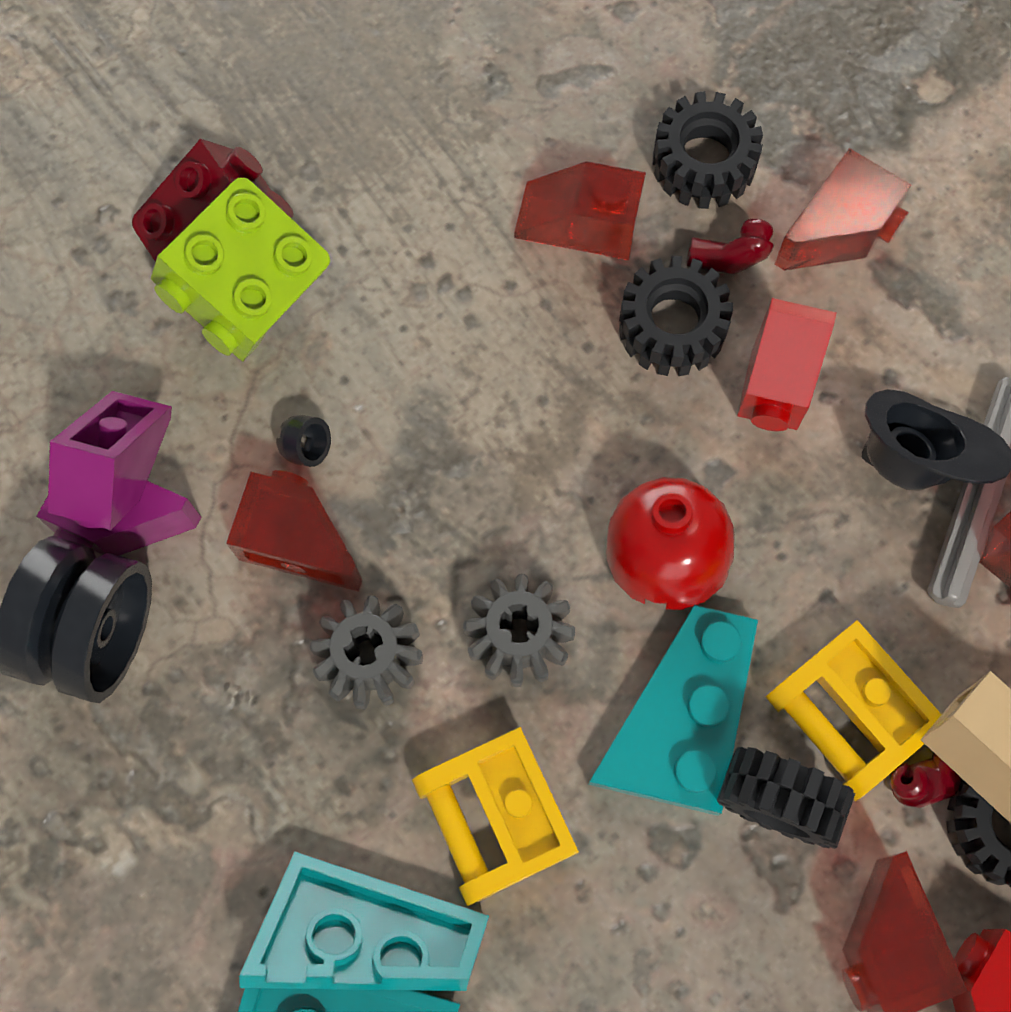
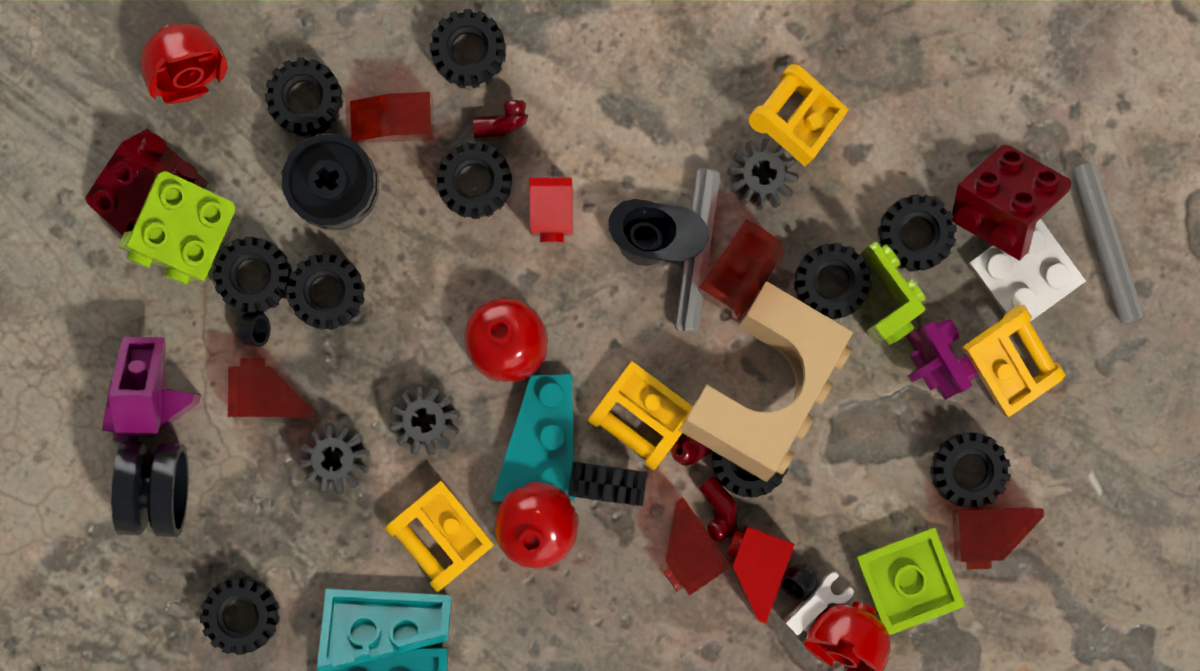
camera: 20 degrees left, 15 degrees up
(108, 851) = (214, 620): none -> black tyre
(316, 75) = (181, 62): none -> red cylinder
(318, 334) = (227, 269): none -> black tyre
(419, 379) = (301, 284): none -> black tyre
(459, 130) = (297, 72): none -> black tyre
(473, 264) = (311, 166): none -> black wheel
(654, 838) = (536, 525): none -> red cylinder
(846, 215) = (573, 77): clear red slope -> none
(961, 892) = (724, 507): none -> dark red arm

